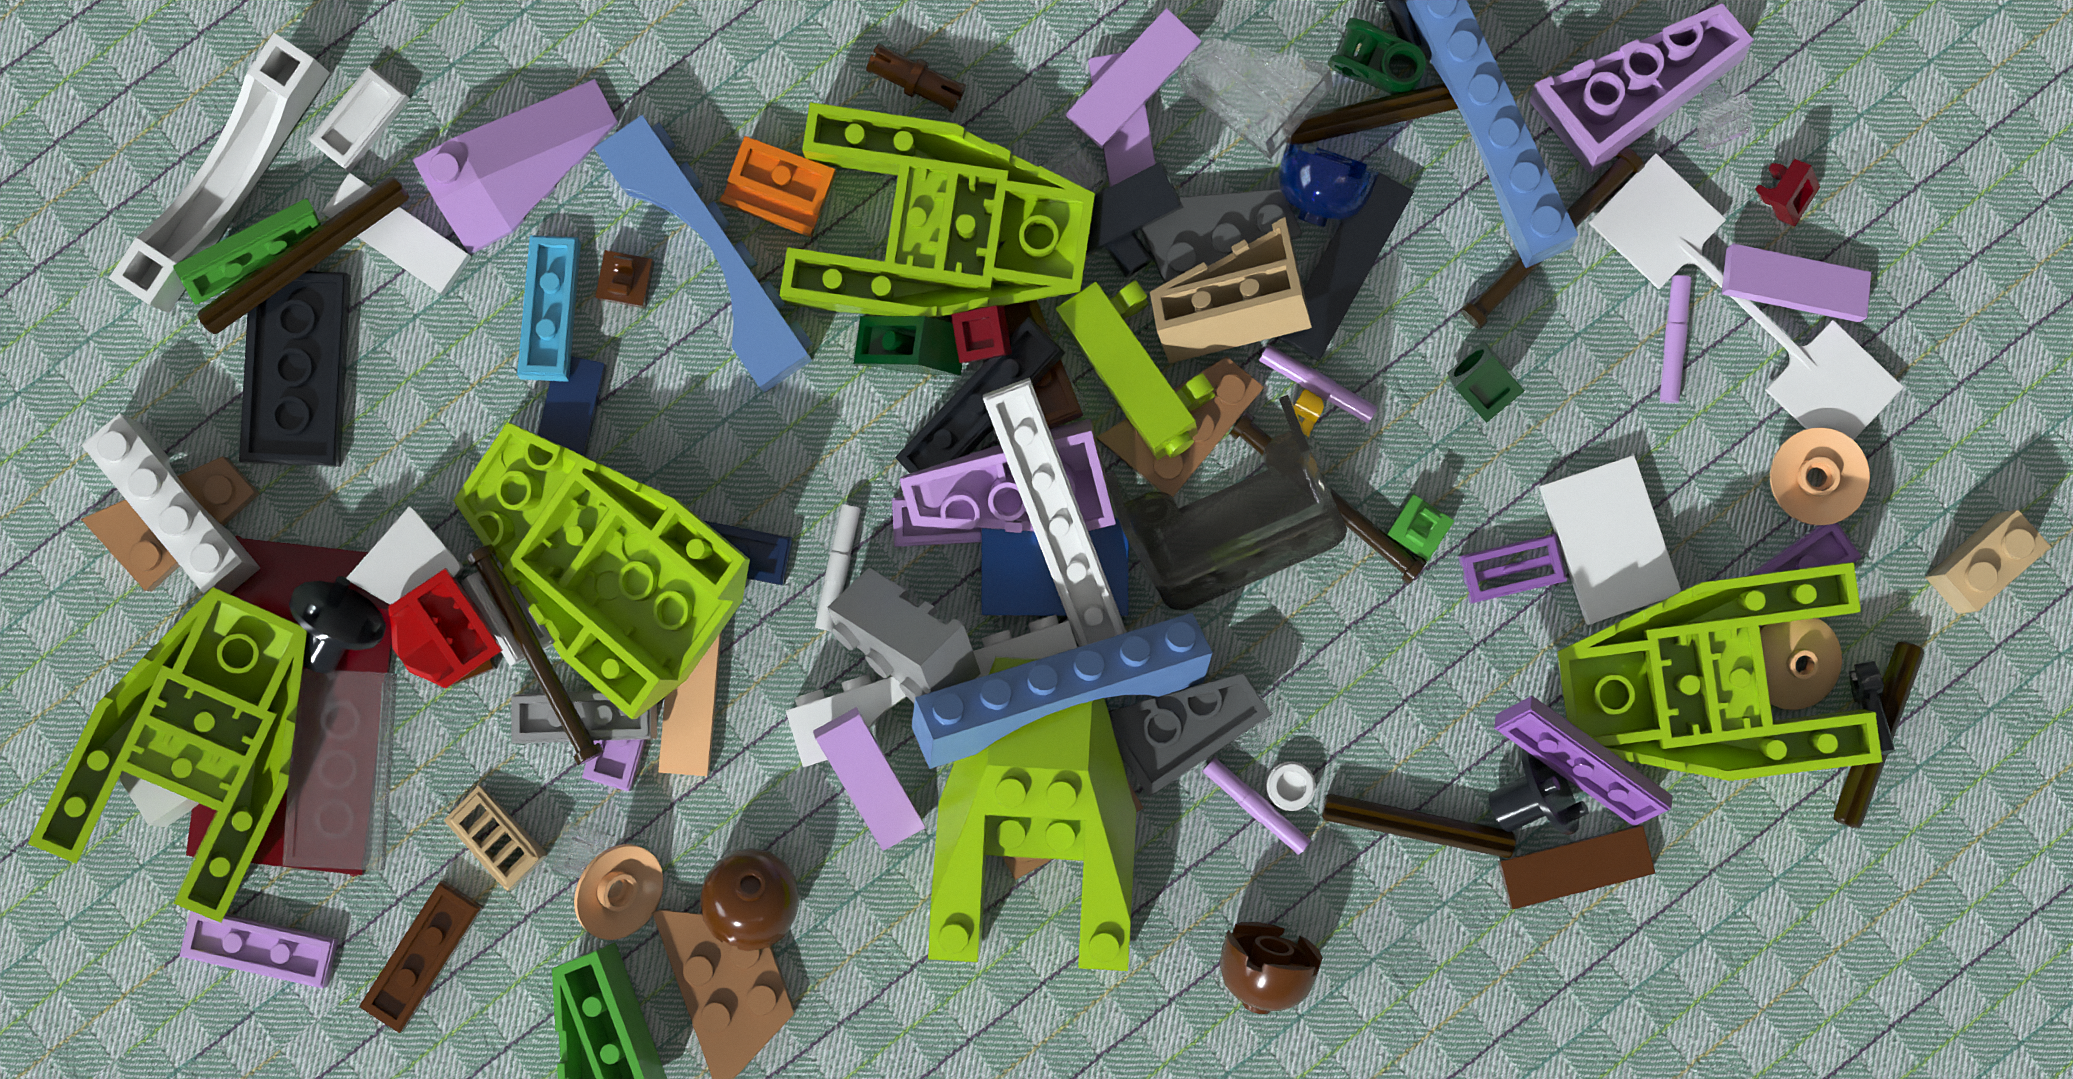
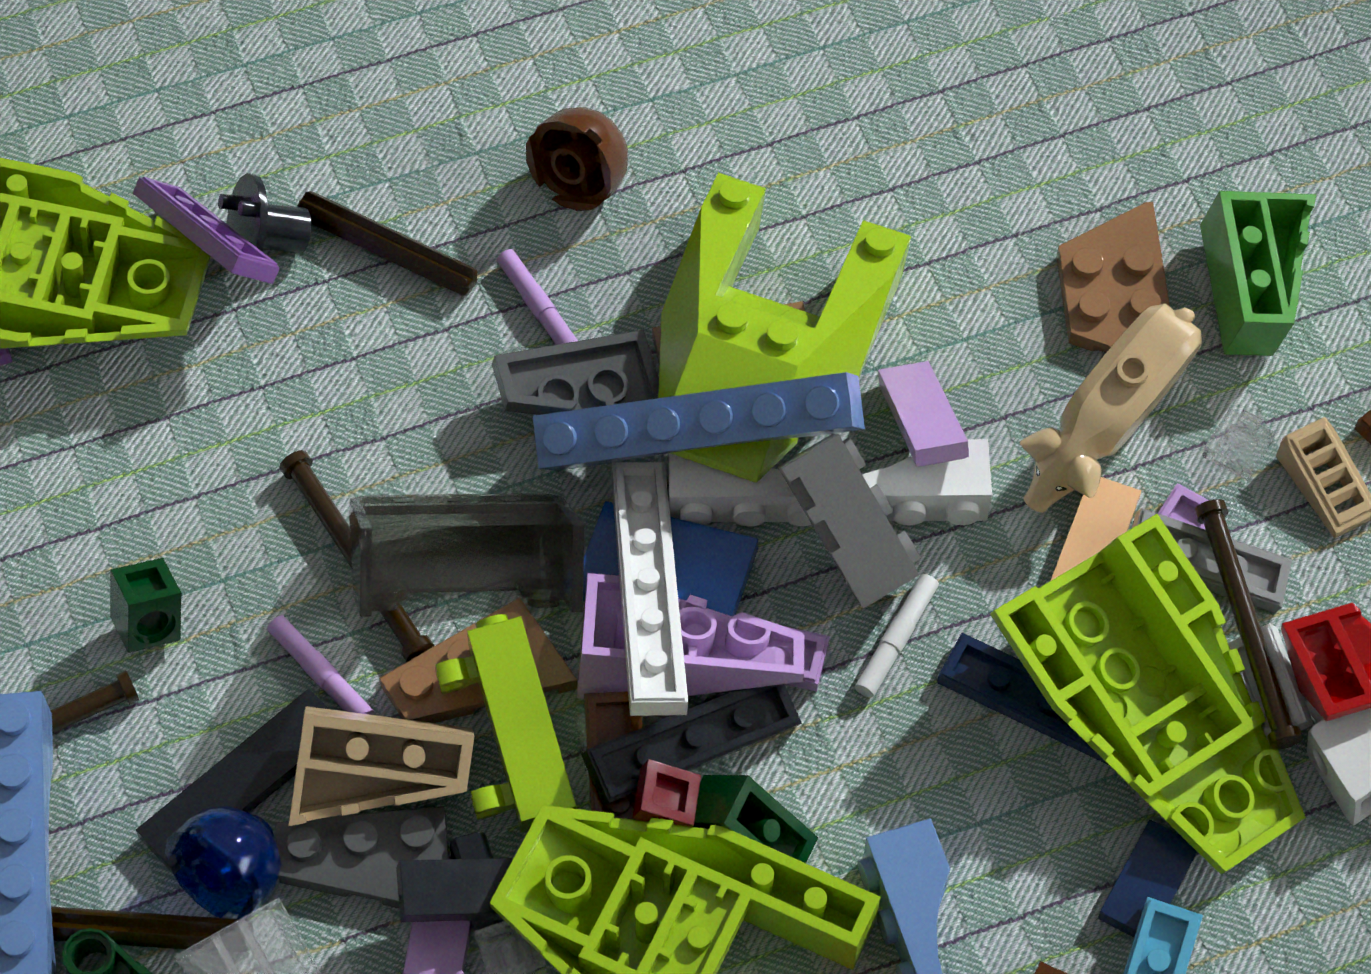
camera: 165 degrees left, 25 degrees down
(629, 902) = (1210, 388): light nougat dish -> none
(696, 831) = (1111, 404): none -> tan animal
(749, 899) = (1068, 342): reddish brown cylinder -> none
(1290, 785) = (498, 312): white tile -> none
(1310, 408) = (338, 642): yellow hand -> none
(1419, 527) = (273, 503): bright green tile -> none
(1472, 578) = (195, 449): medium lavender tile -> none
(1576, 867) = (217, 168): reddish brown tile -> none
(1610, 540) = (85, 439): white tile -> none

